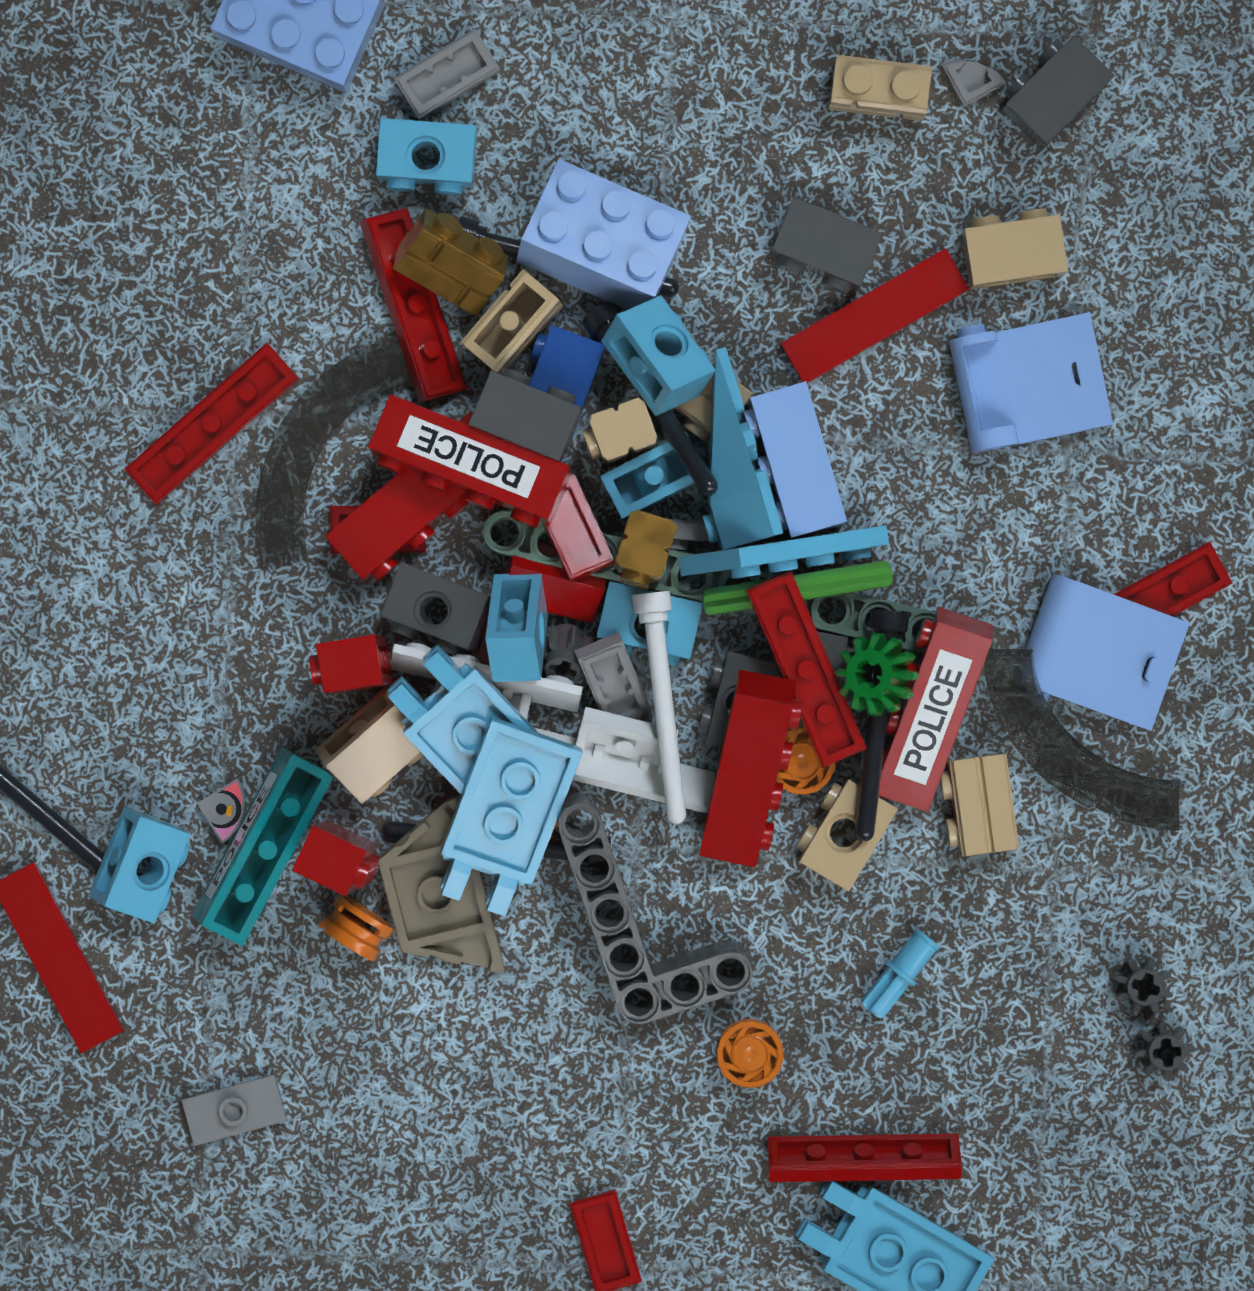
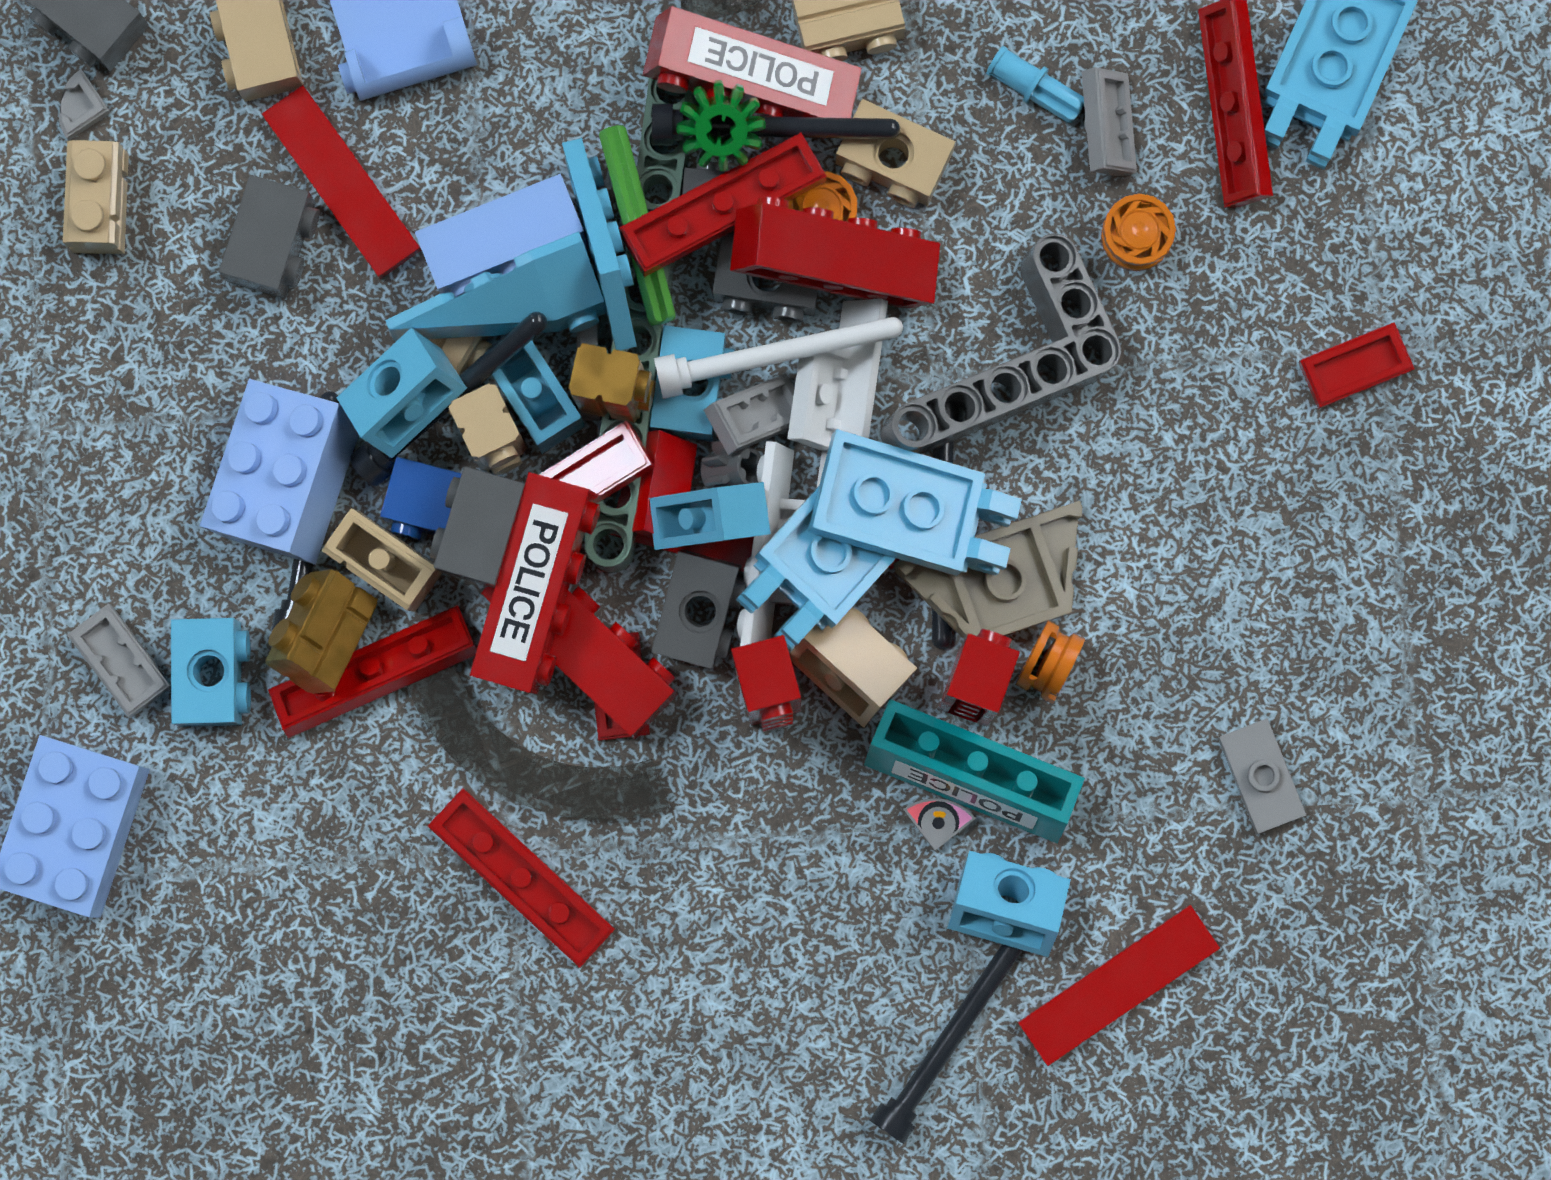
camera: 90 degrees left, 5 degrees down
(857, 1037) = (1109, 122): none -> light grey plate

